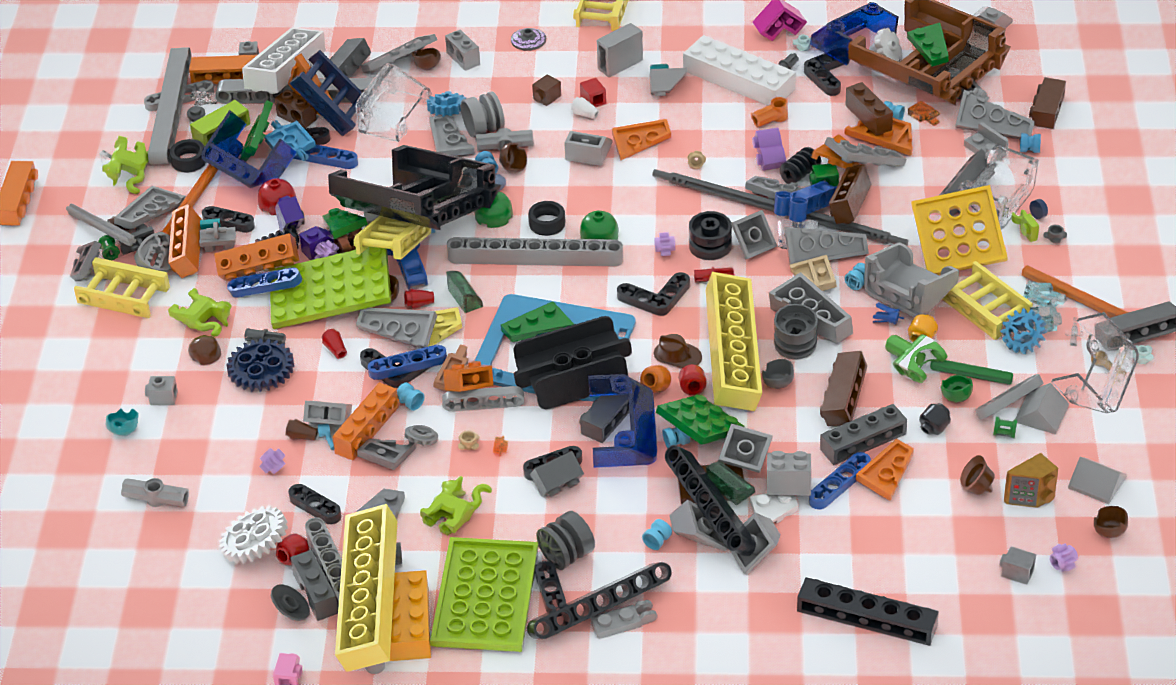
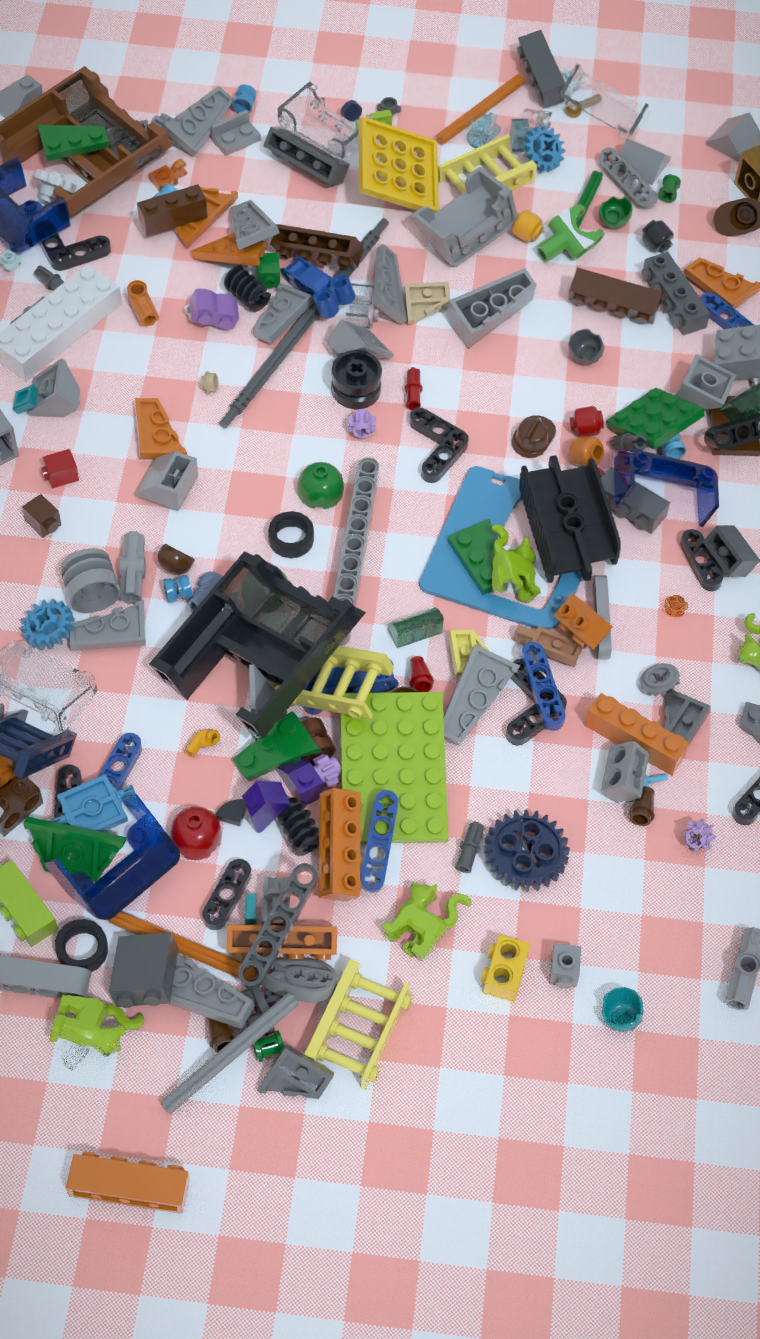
camera: 90 degrees left, 15 degrees up
(161, 359) = (510, 969): none -> yellow brick
(162, 178) = (143, 970): none -> dark grey brick
(181, 220) = (281, 912): none -> dark grey beam
(204, 349) = (486, 919): reddish brown hair -> none
(333, 342) = (492, 767): red cone -> none
(411, 397) = (590, 690): medium azure wheel -> none
(468, 440) = (667, 631): tan plate -> none
(519, 330) = (514, 566): none -> lime animal
(584, 108) = (85, 482): white cone -> none
(661, 398) = (628, 441): none -> dark grey axle
(733, 342) = (540, 375): light yellow brick -> none
(795, 331) = (530, 321): dark grey wheel -> none
(855, 277) = (436, 264): medium azure wheel -> none
(890, 315) = (499, 248): blue piece -> none
(1048, 102) = (180, 73): reddish brown brick -> none

